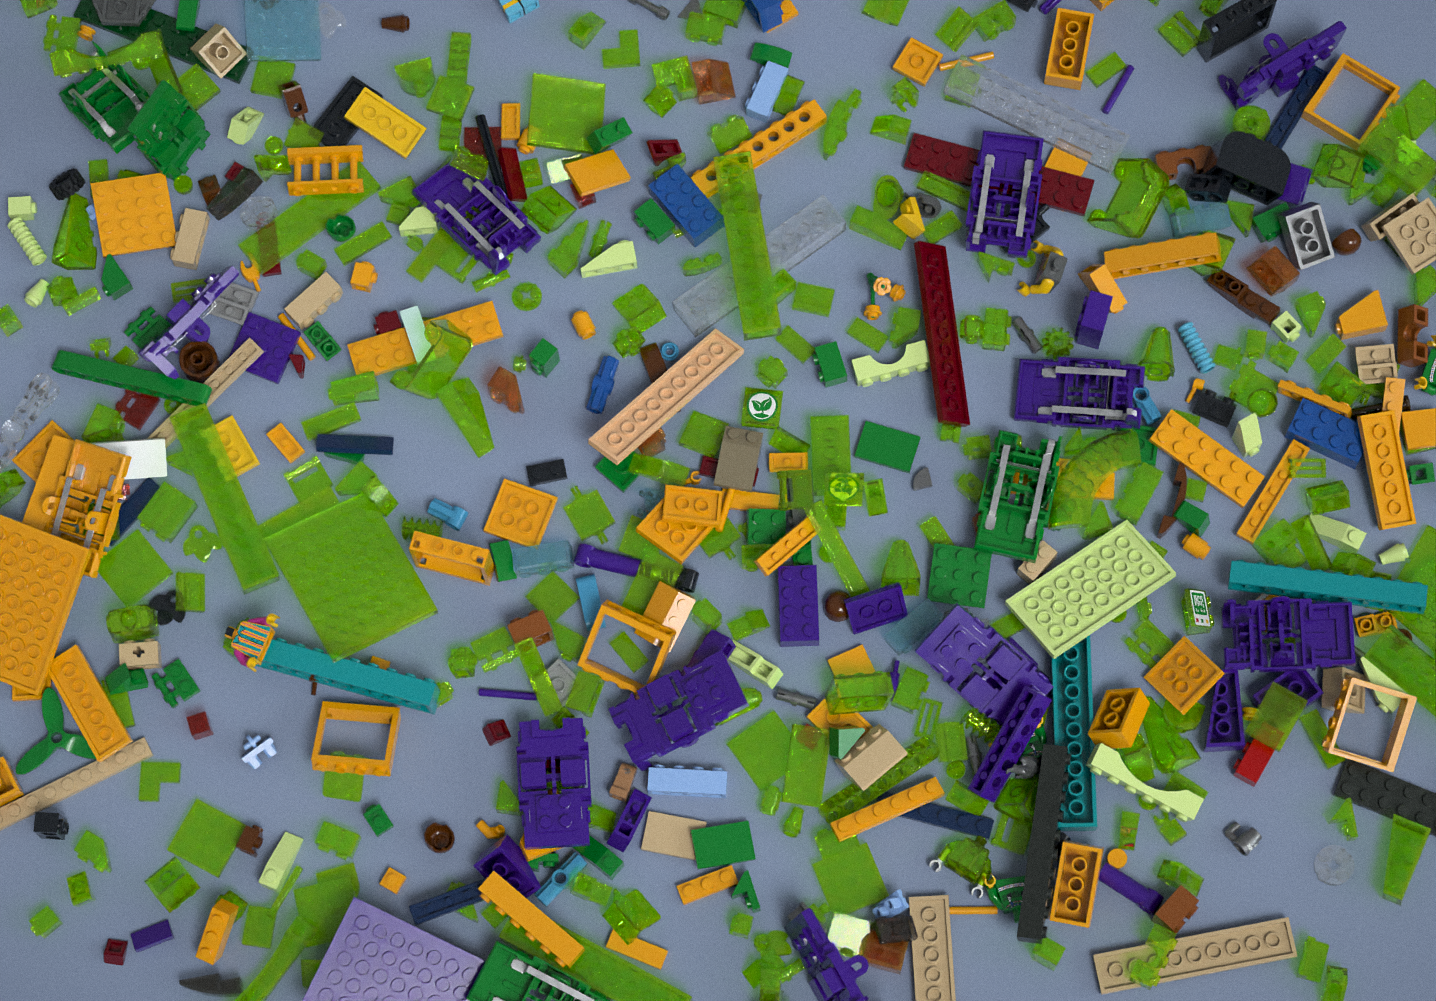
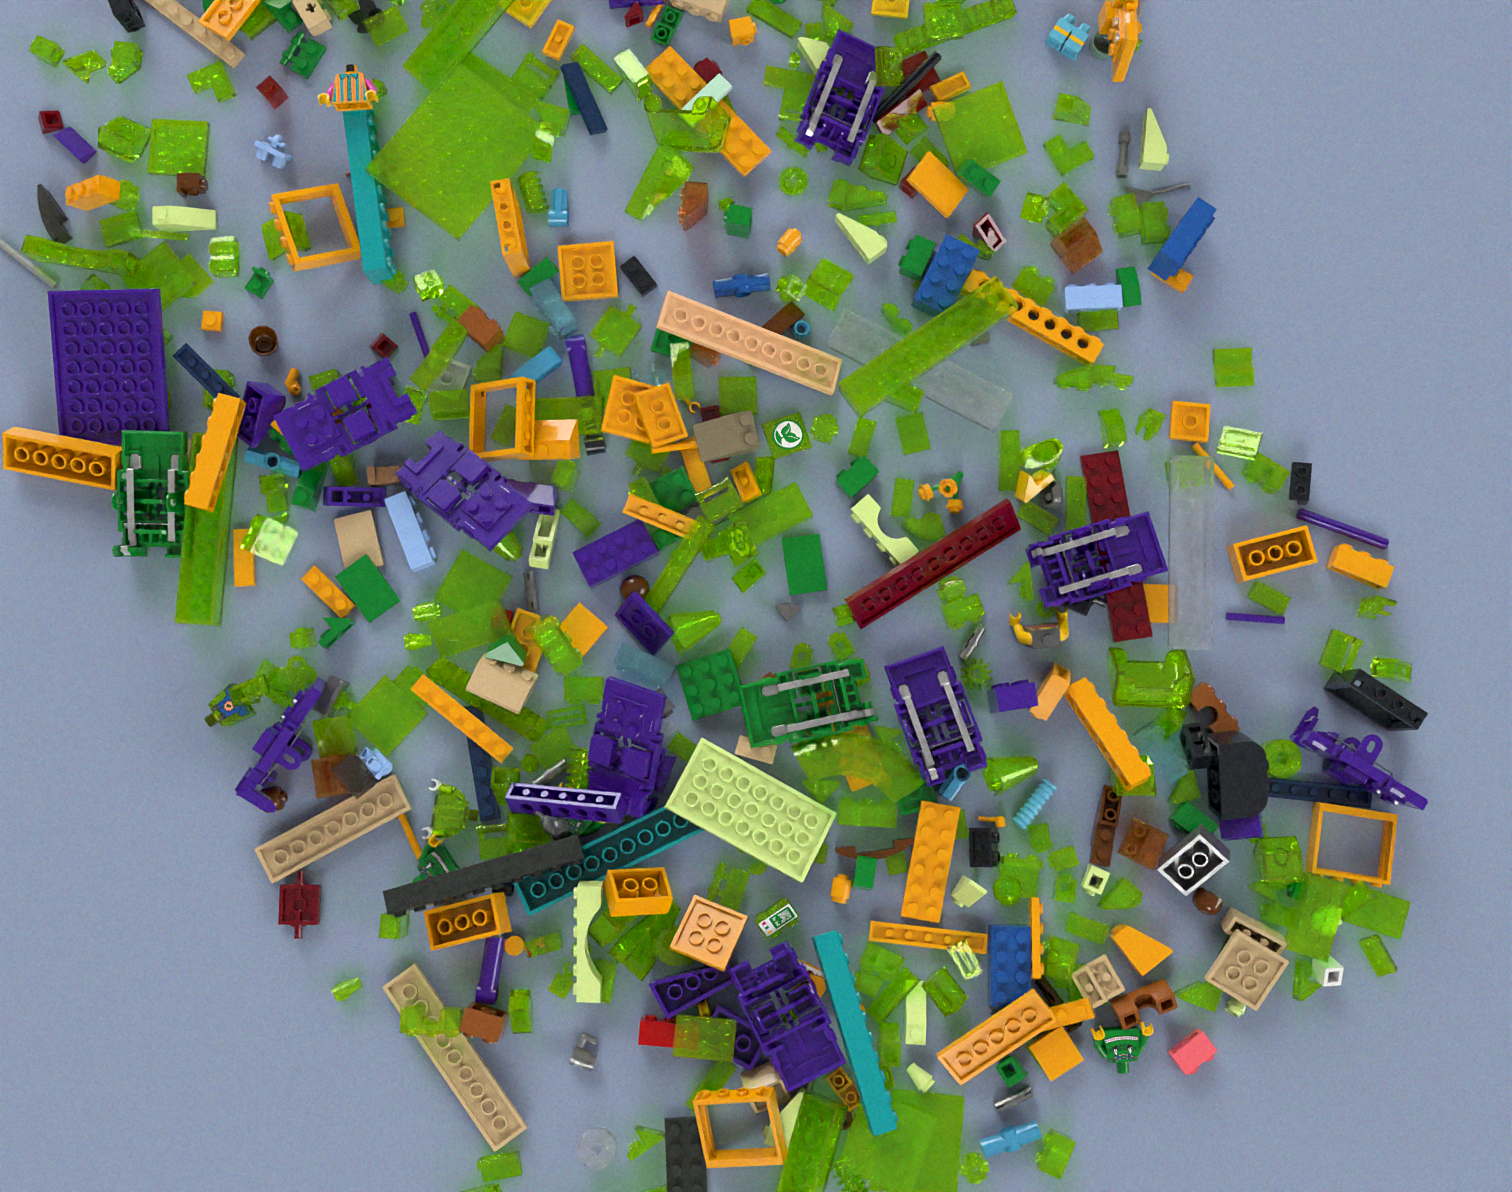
camera: 60 degrees right, 10 degrees up
(895, 677) = (585, 670): dark purple hand -> none

